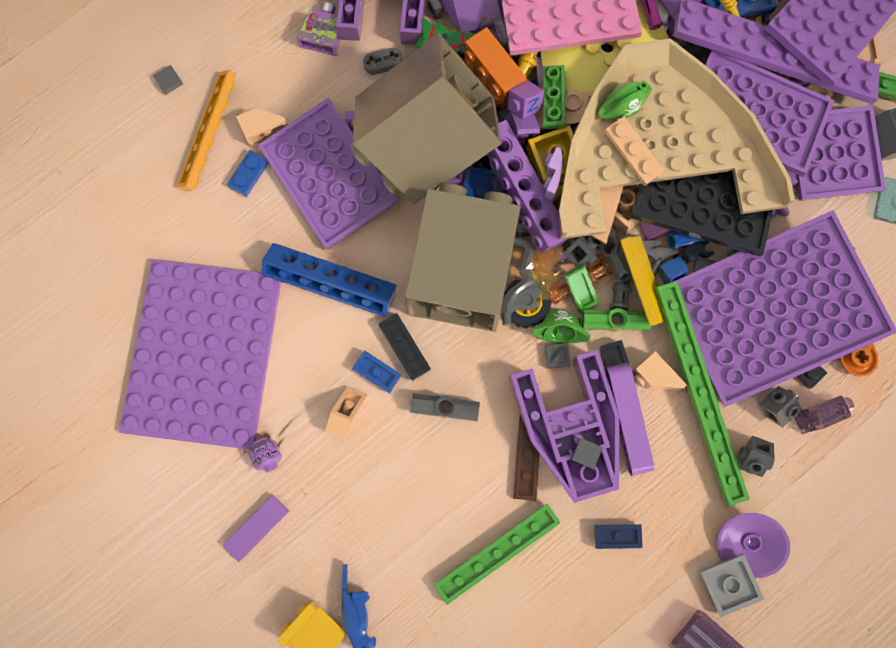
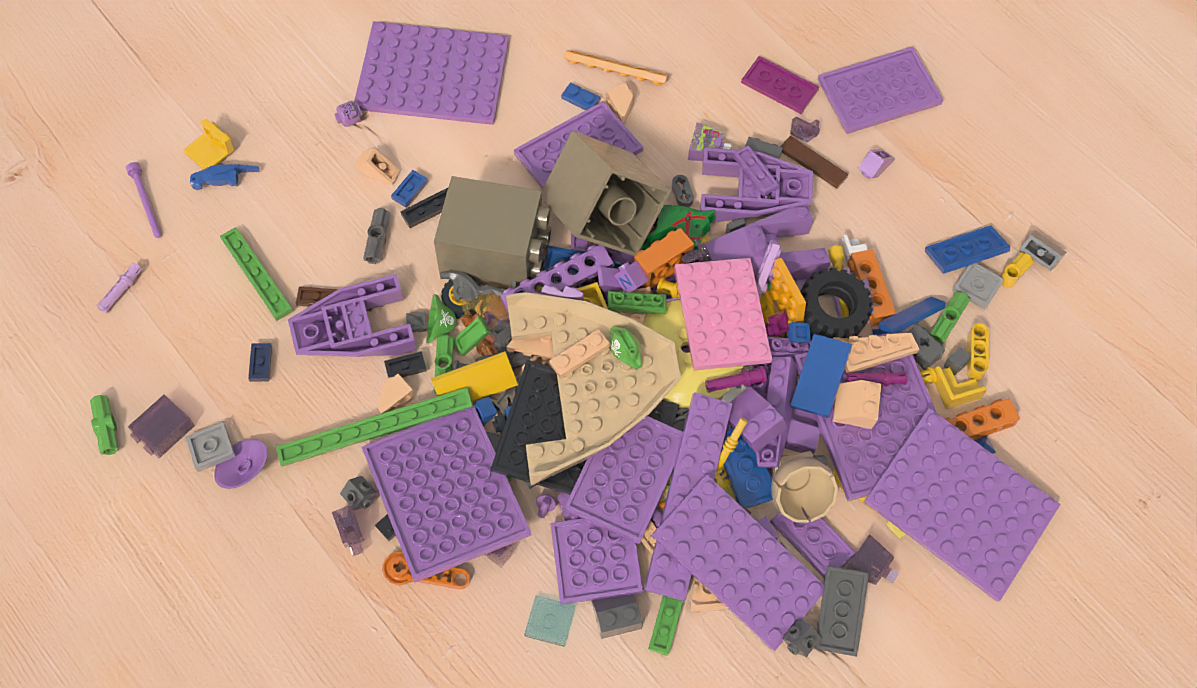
camera: 85 degrees right, 15 degrees down
(168, 79) = (661, 40): dark grey tile -> none
(256, 528) = (293, 111): medium lavender tile -> none
(328, 279) = (499, 114): blue brick -> none
(586, 453) = (326, 326): dark grey tile -> none
(631, 421) = (356, 369): medium lavender beam -> none
(757, 456) = (315, 470): dark grey brick -> none

